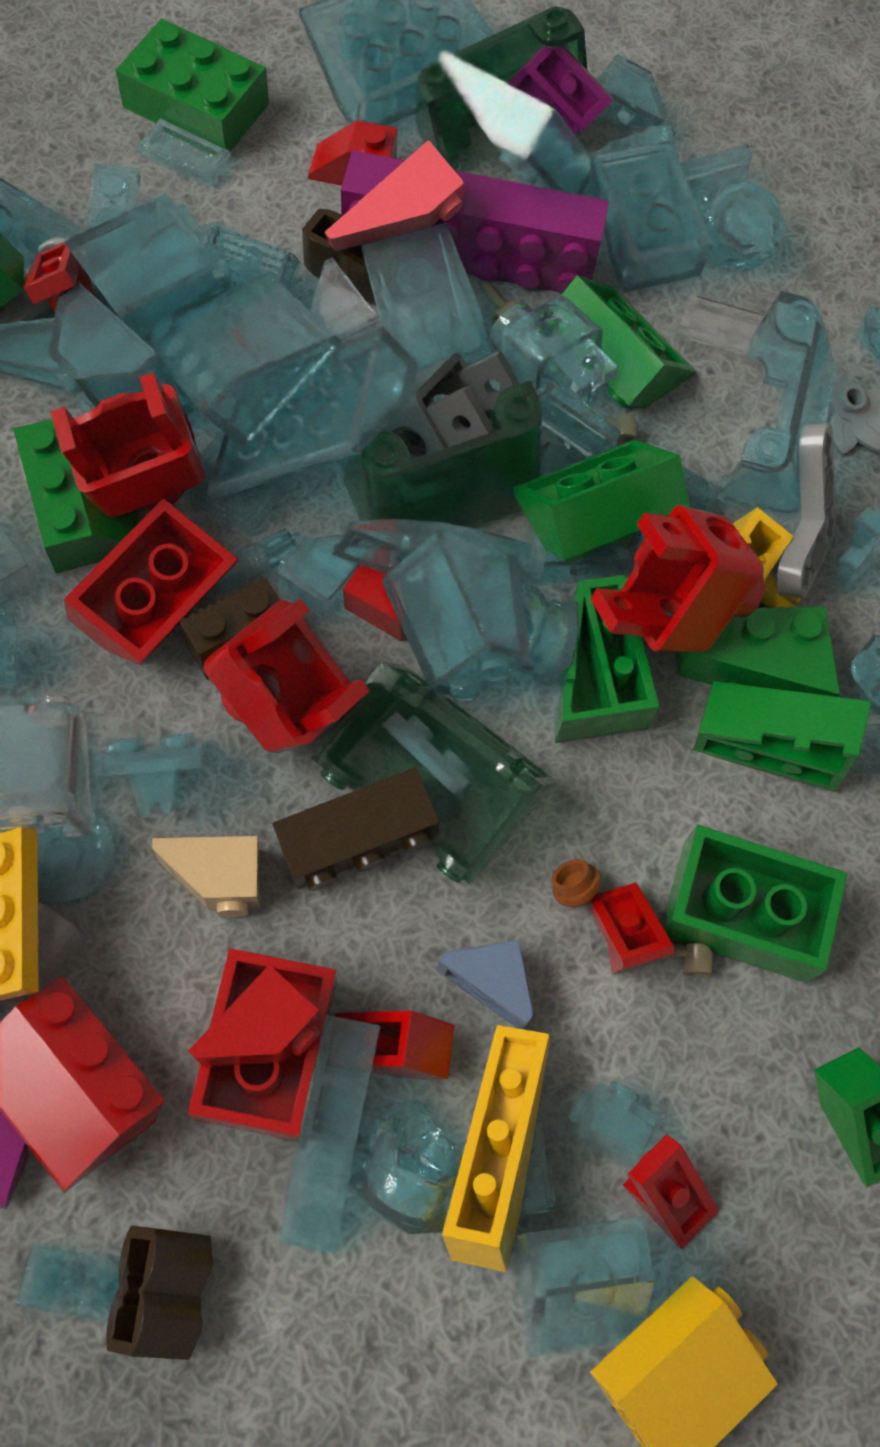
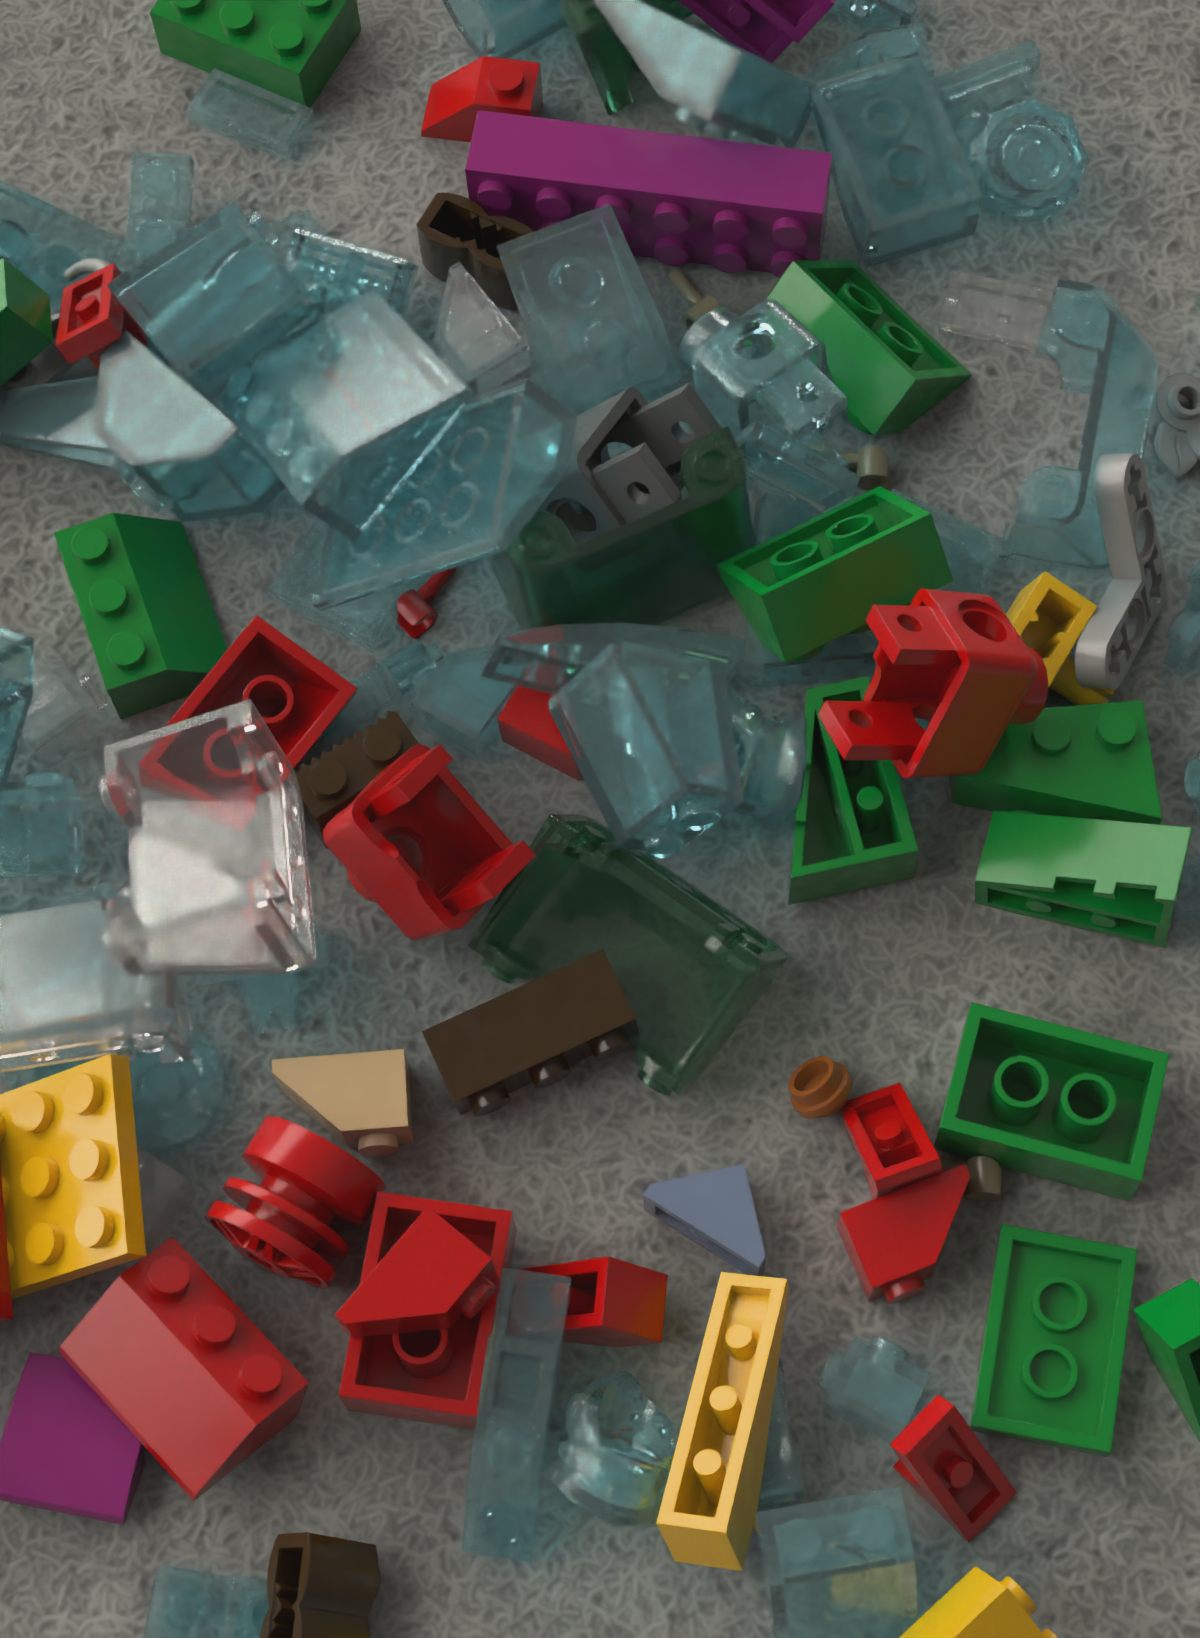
camera: 10 degrees right, 0 degrees up
(113, 672) = (210, 850): none -> clear windscreen
(132, 449) = (193, 548): red piece -> none
(159, 959) = (291, 1210): none -> red wheel
(284, 506) = (413, 607): none -> red hand
(405, 201) = (554, 181): coral slope -> none
(415, 739) = (601, 911): clear light blue plate -> none
(637, 1002) = (901, 1234): none -> red slope
(750, 1091) = (1054, 1340): none -> green plate

